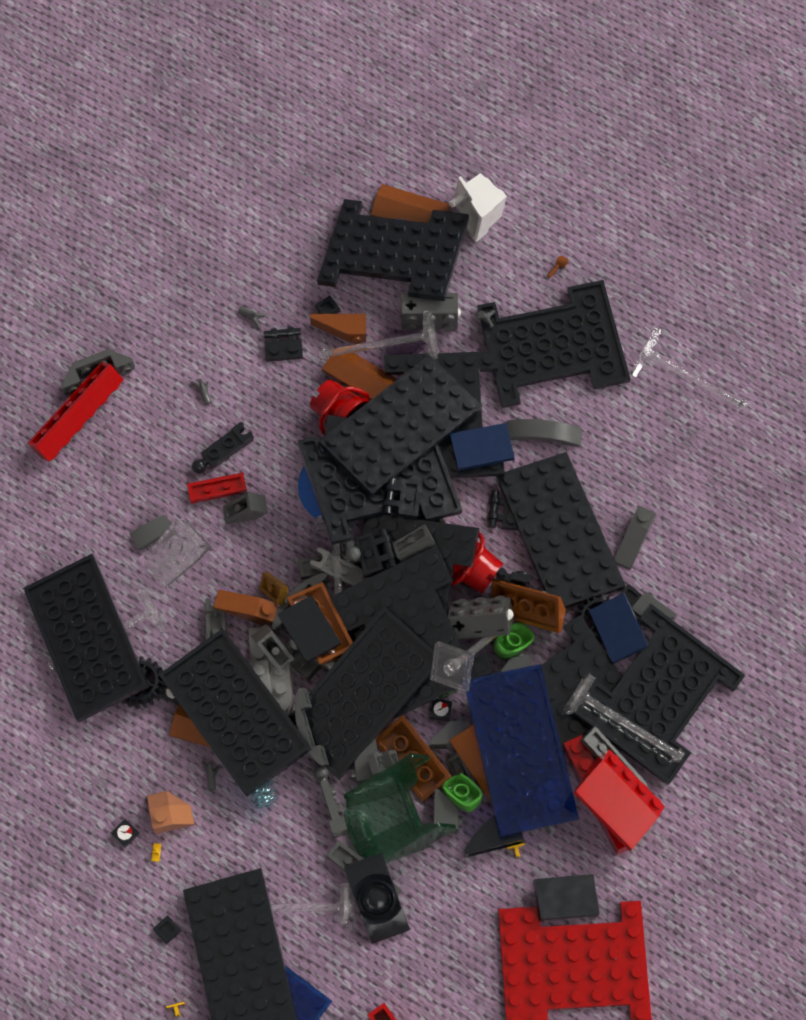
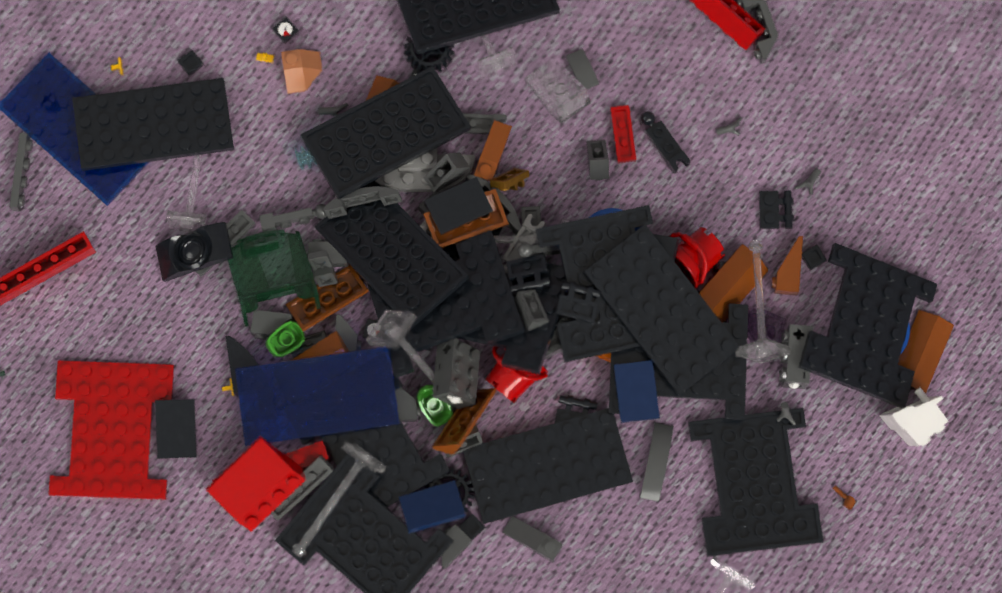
camera: 90 degrees right, 10 degrees up
(519, 578) = (493, 415): black plate -> none

